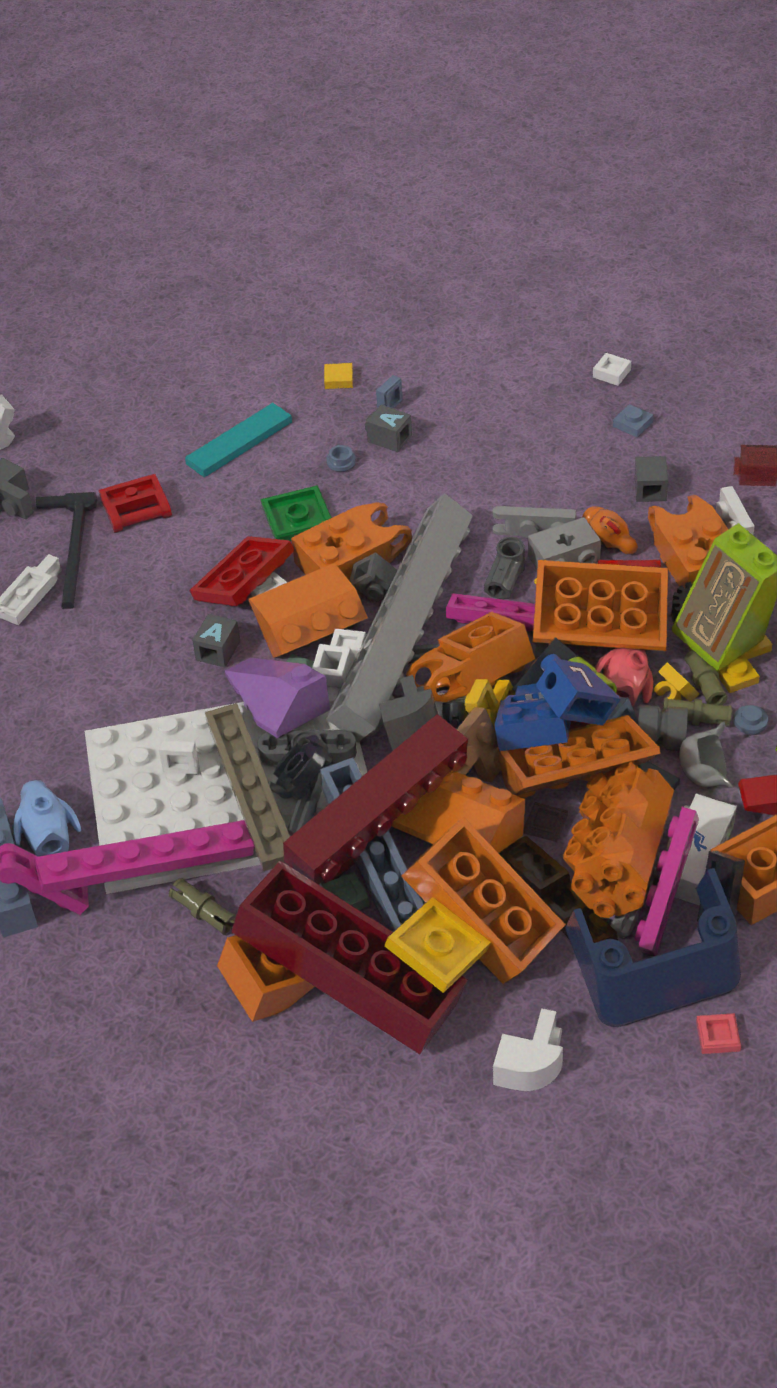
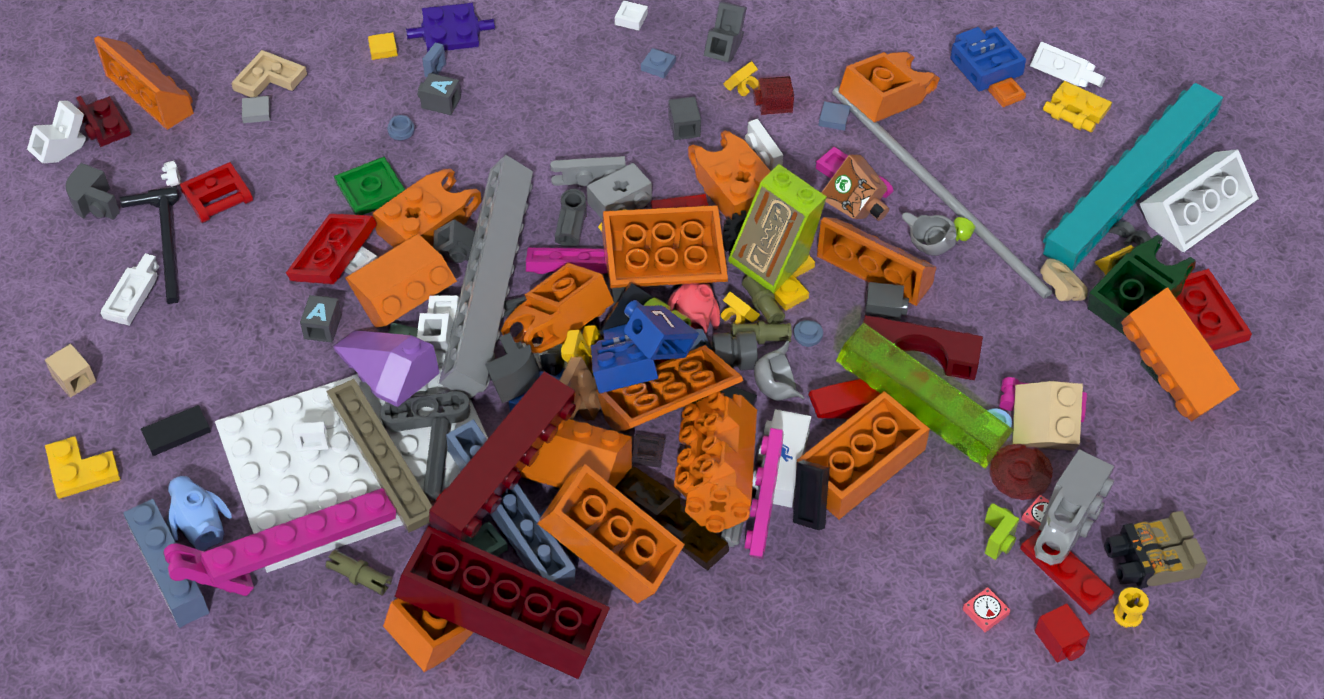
camera: 15 degrees left, 5 degrees up
(35, 421) = (103, 121): none -> dark red bracket
(42, 735) = (175, 430): none -> black tile
(84, 386) = (144, 82): none -> orange slope
(93, 480) = (172, 174): none -> white piece
(193, 426) = (256, 109): none -> light grey tile
(211, 387) = (267, 69): none -> tan plate
(238, 439) = (301, 119): teal tile -> none
(300, 768) = (425, 433): black plate -> none
(415, 363) = (451, 26): none -> dark purple plate
(437, 944) = (580, 581): yellow plate -> none
(530, 1063) = (677, 672): white brick -> none
(611, 529) = (657, 170): orange animal -> none
(643, 989) = (750, 596): dark blue windscreen -> none
(715, 396) = (727, 34): none -> dark grey brick
(718, 1033) = (827, 620): coral tile -> none
(723, 443) = (742, 78): none -> yellow tile

